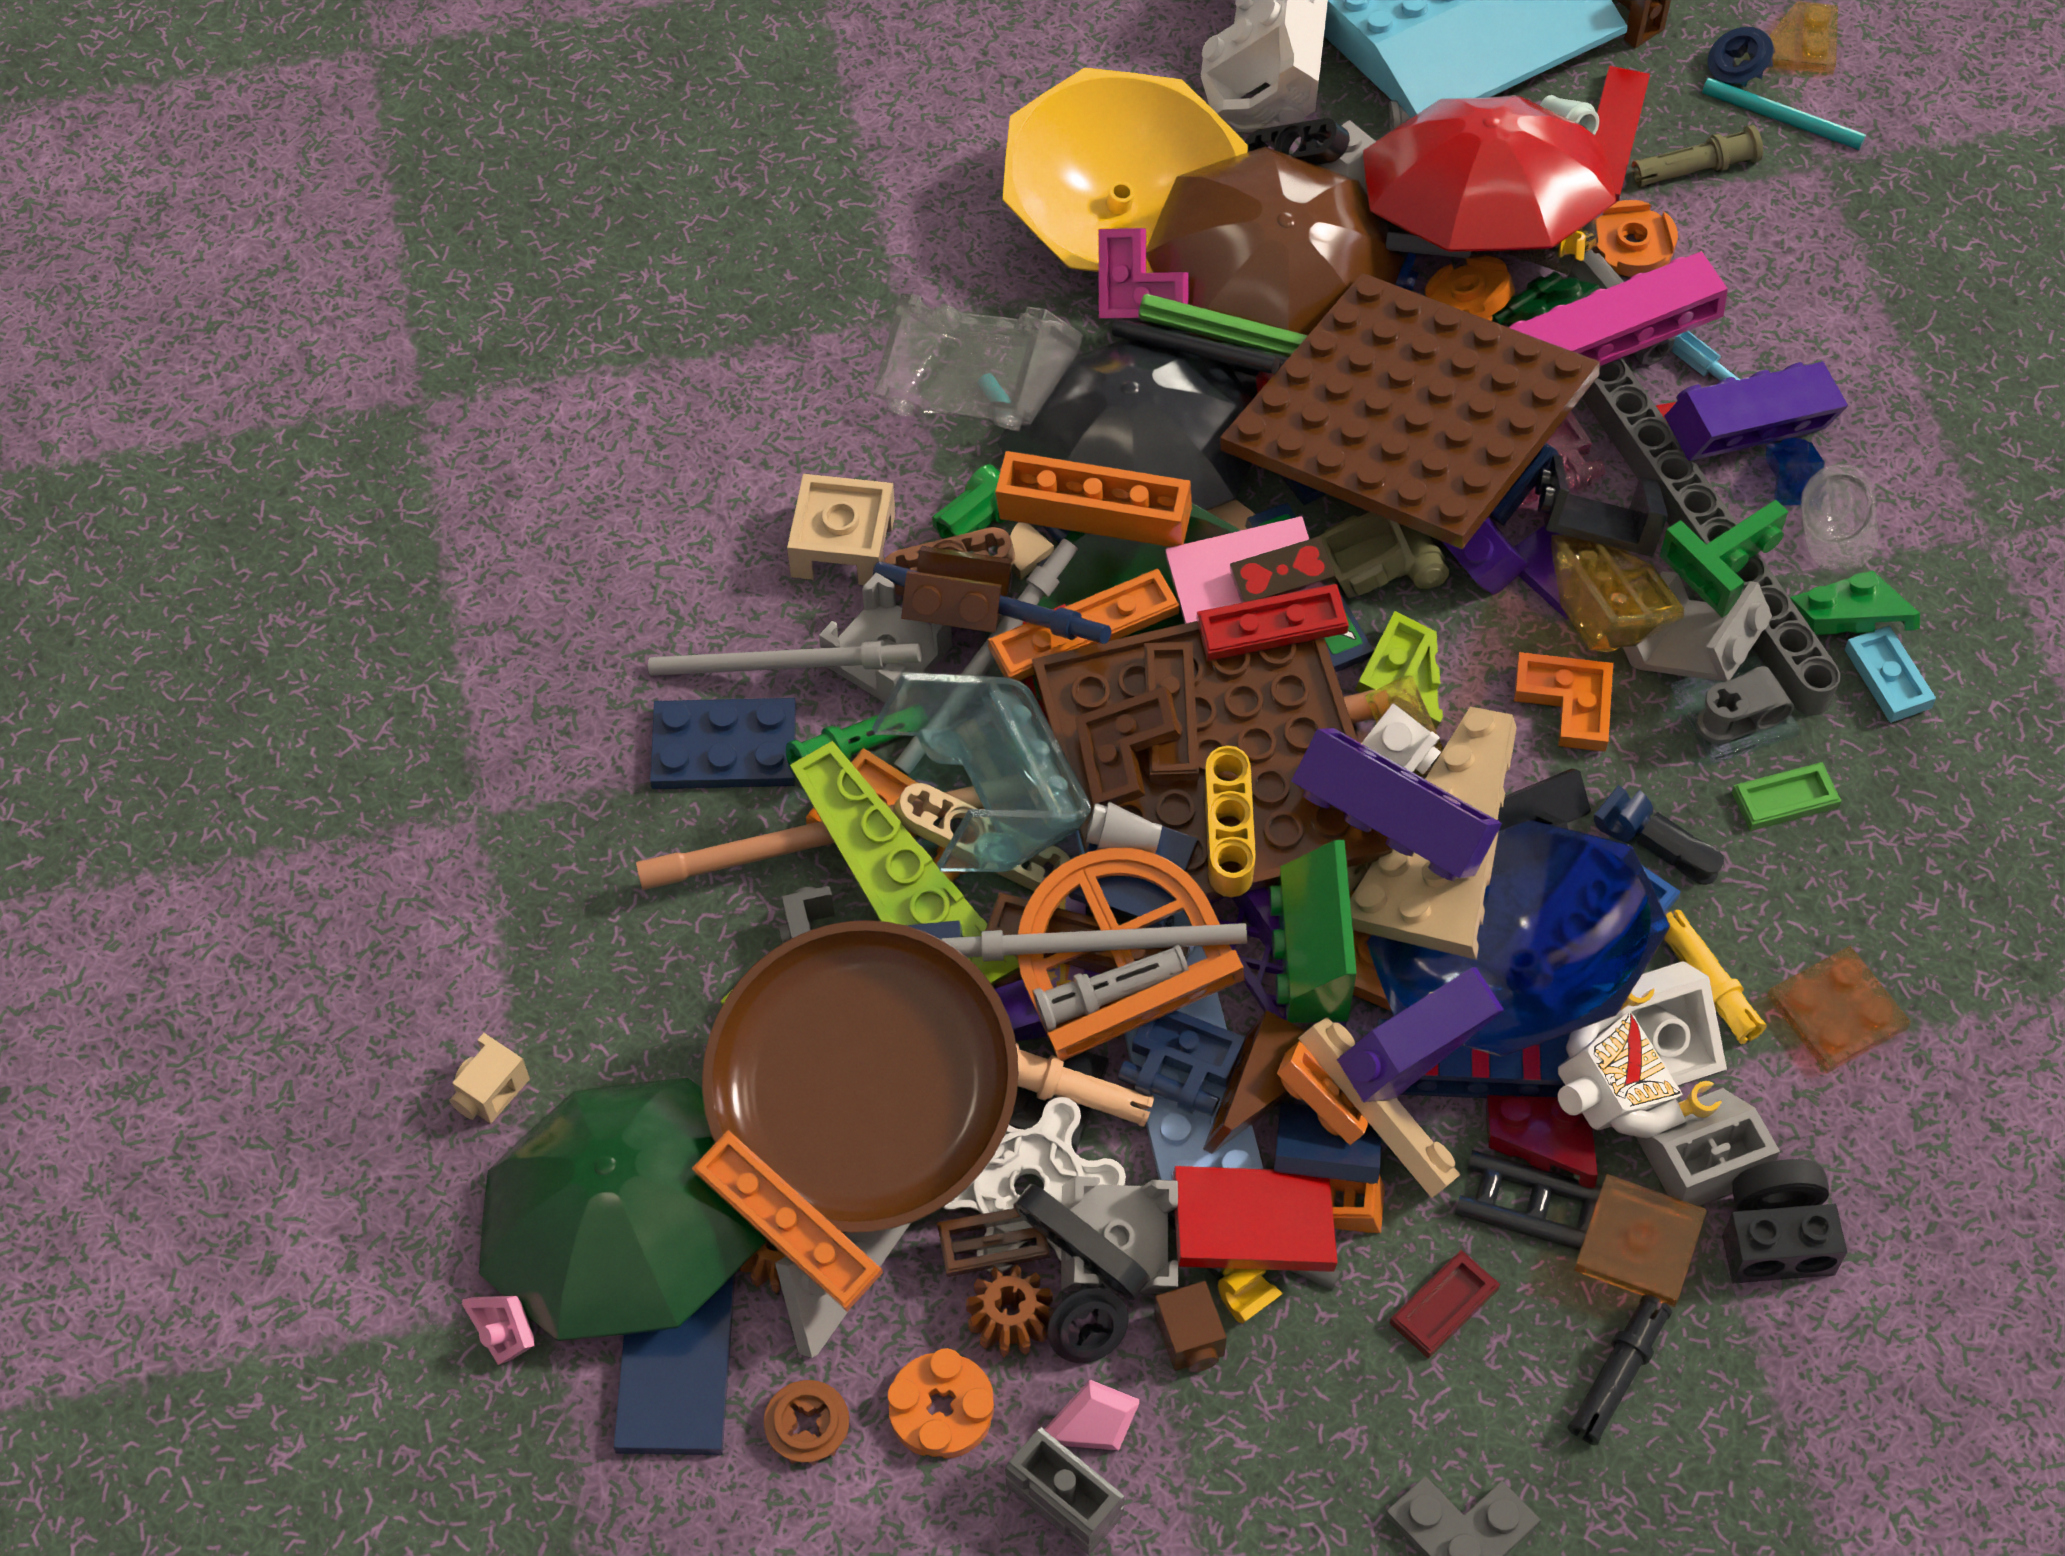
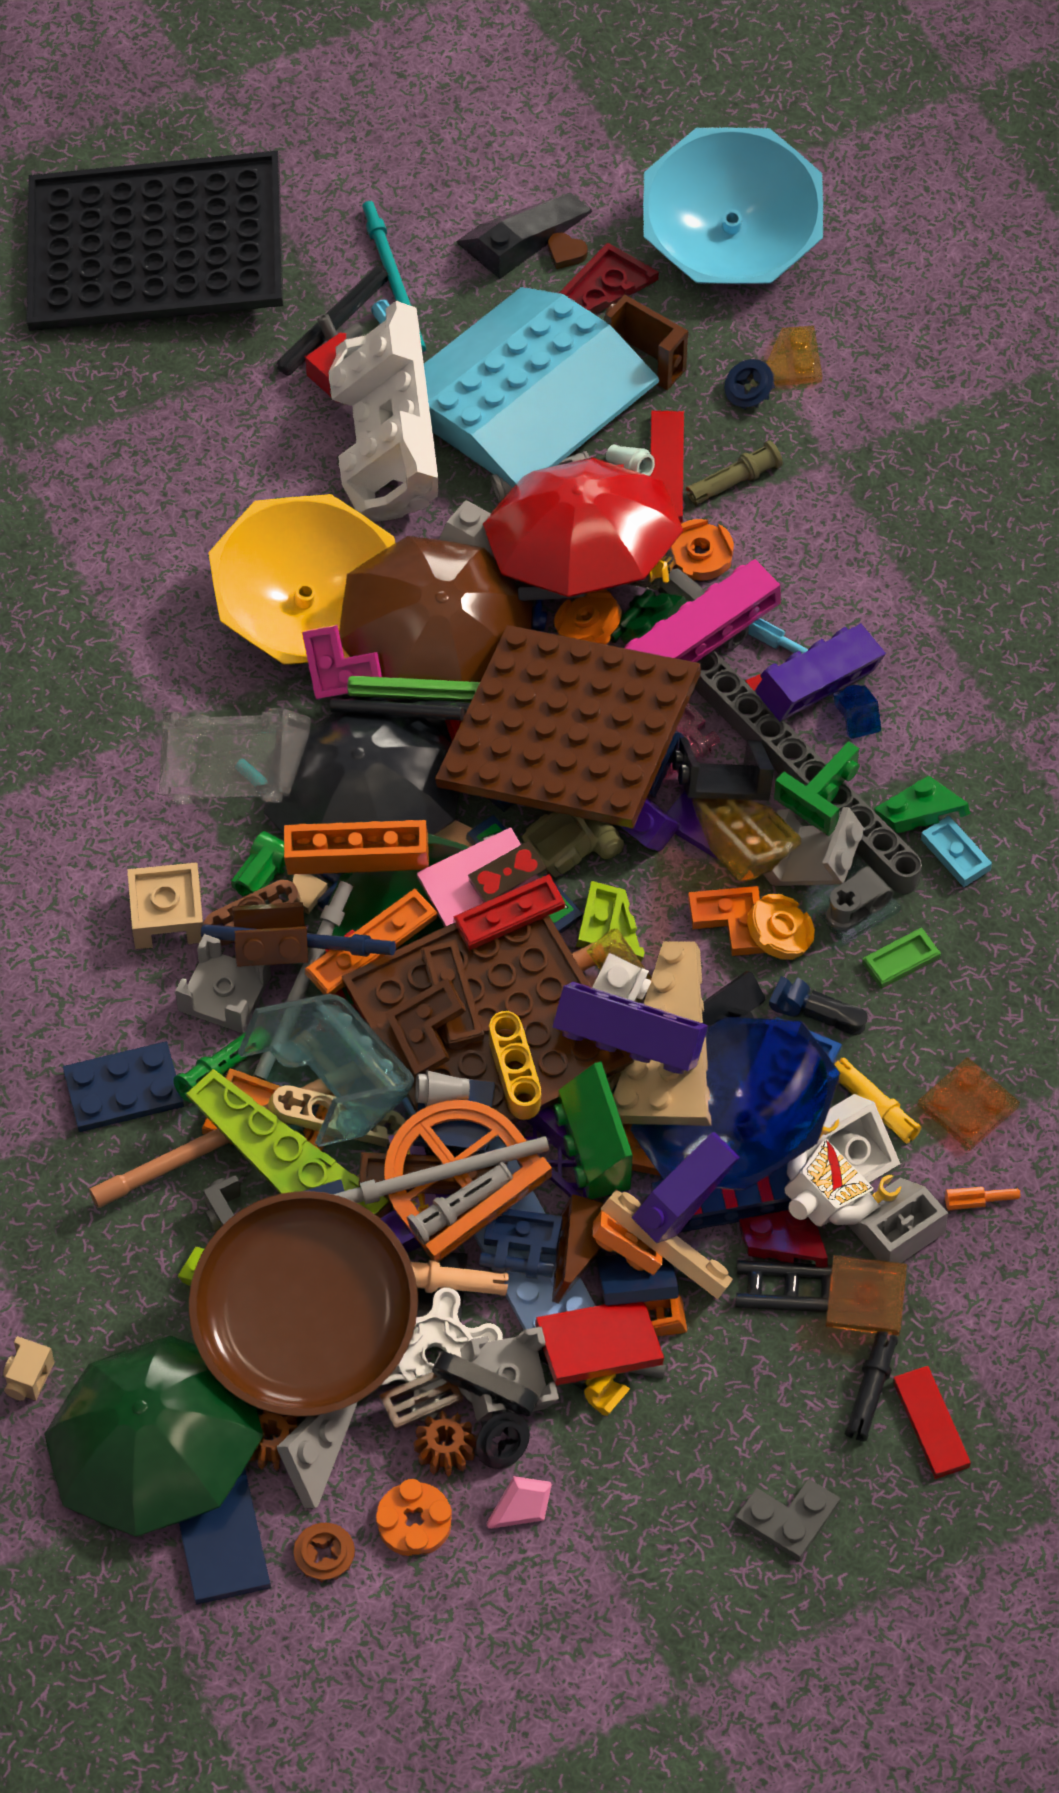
camera: 15 degrees left, 0 degrees up
(500, 1325) = (89, 1536): bright pink piece -> none
(787, 1220) = (279, 1415): orange tile -> none
(870, 655) = (219, 997): light grey bar -> none
(1064, 1490) = (516, 1553): dark grey brick -> none
(1190, 1327) = (573, 1425): reddish brown brick -> none
(1325, 130) = (418, 522): black beam -> none
(1444, 1304) = (742, 1370): dark red tile -> none
(1631, 721) = (780, 927): none -> light orange tile
(1695, 1441) = (931, 1422): none -> red tile
(1781, 1185) = (953, 1238): black tyre -> none
(1784, 113) = (791, 423): teal bar -> none
(1784, 1243) = (963, 1275): black brick -> none
(1824, 1139) = (976, 1197): none -> orange axle
(1840, 517) = (897, 741): clear piece -> none

